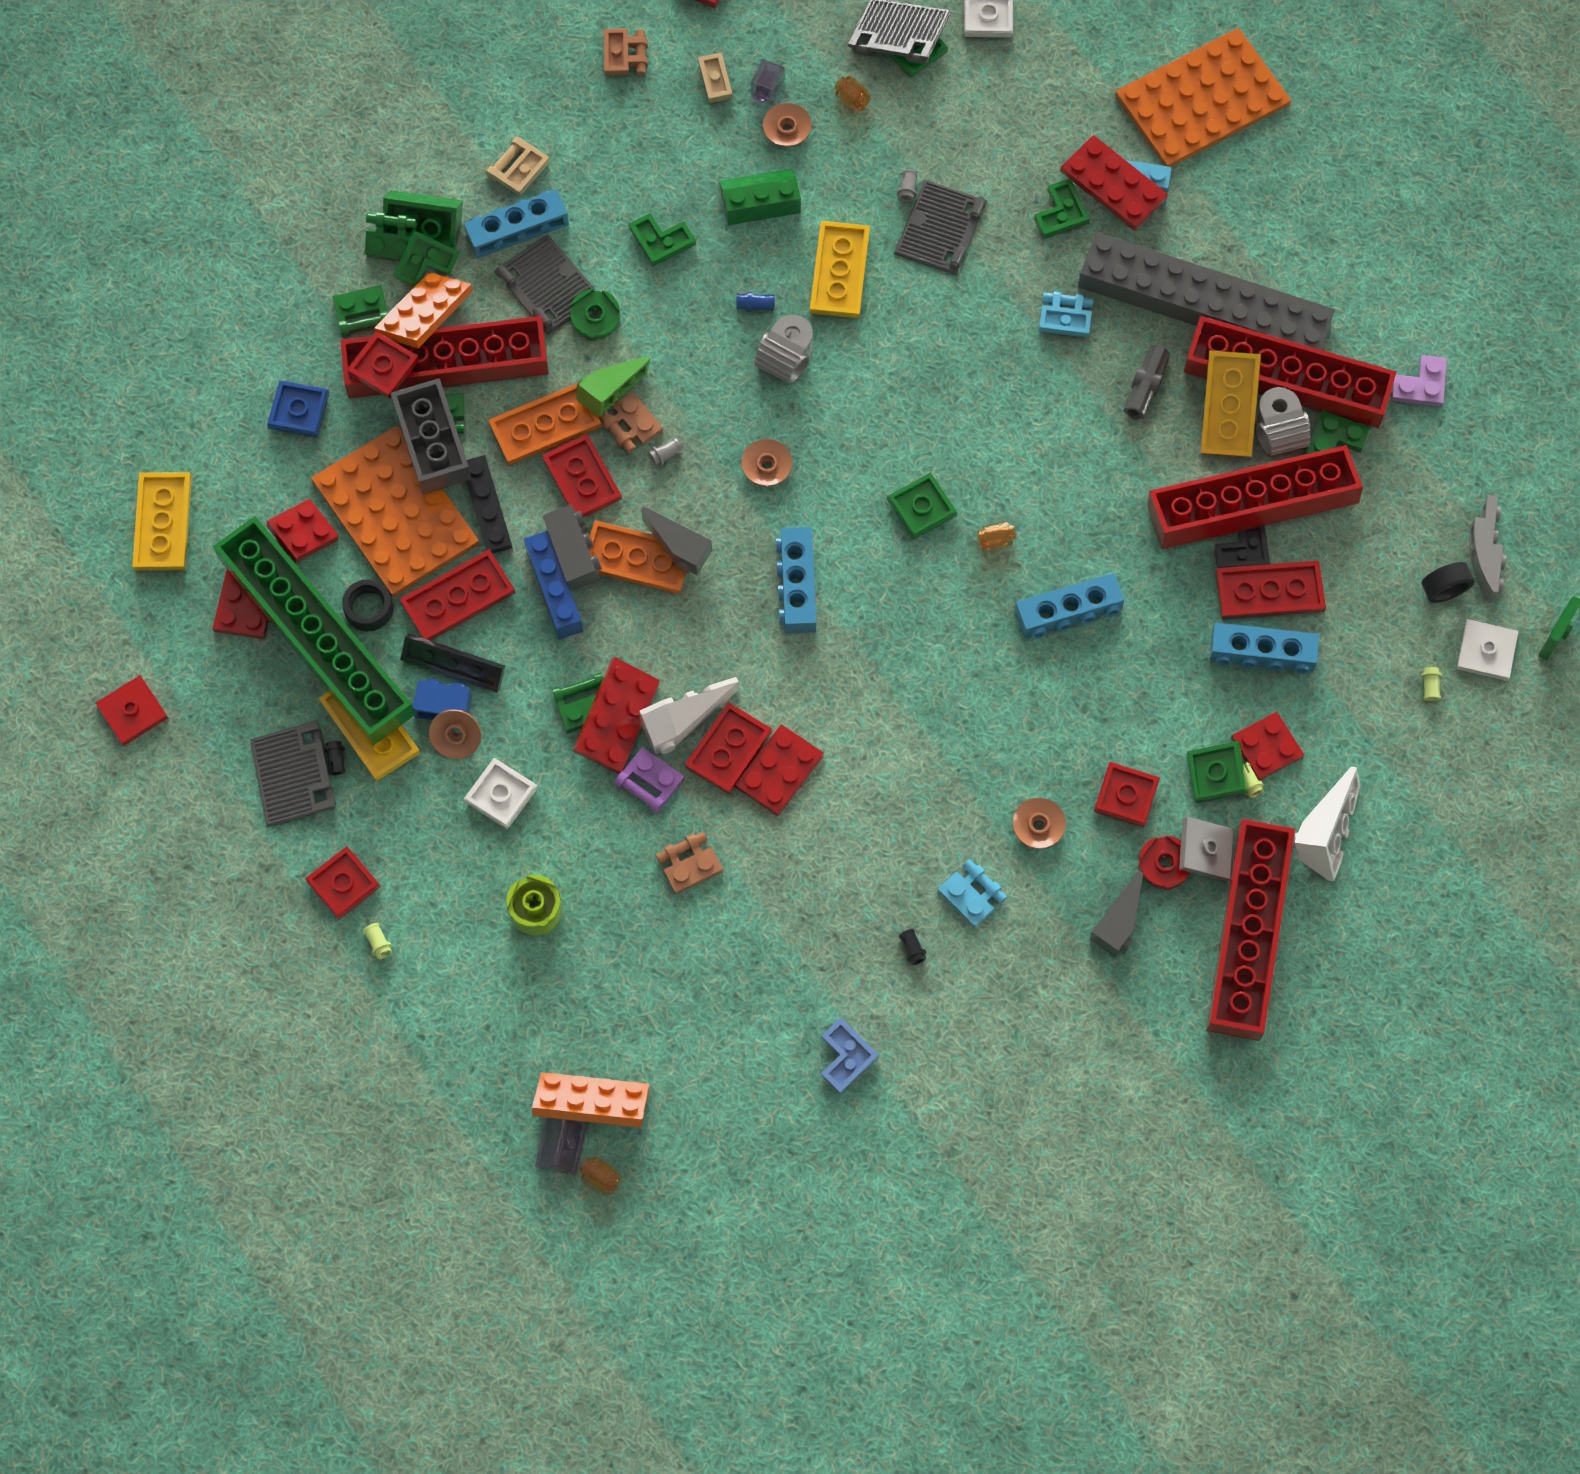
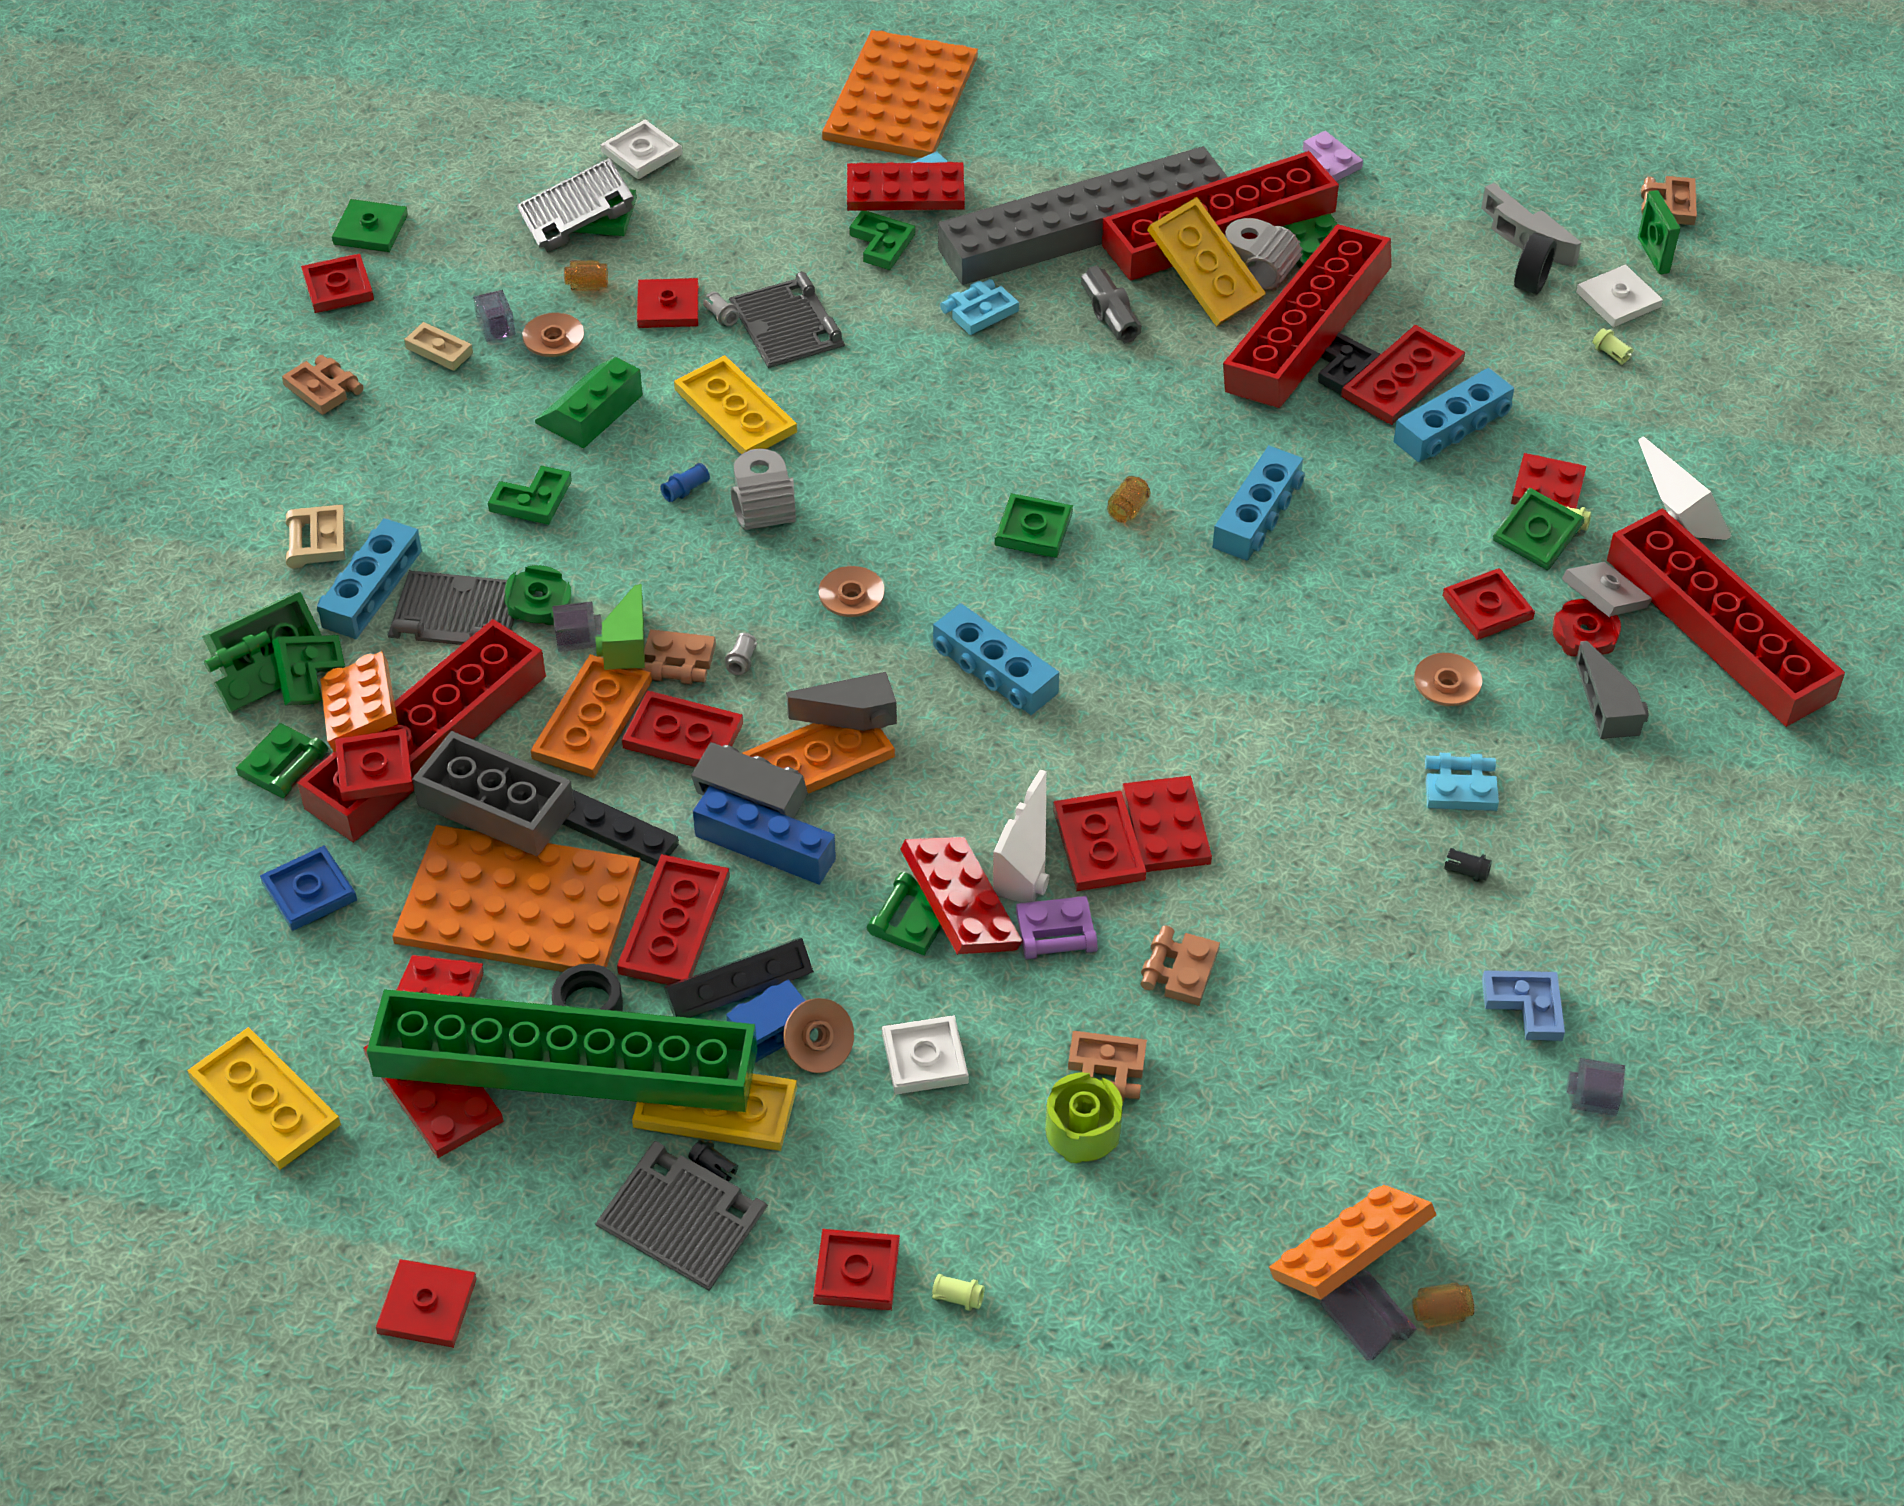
camera: 45 degrees left, 20 degrees down
(591, 881) = (1109, 1056): none -> nougat plate
(592, 353) = (576, 626): none -> clear purple brick
(820, 1137) = (1596, 1086): none -> brick
(883, 153) = (668, 303): none -> red plate

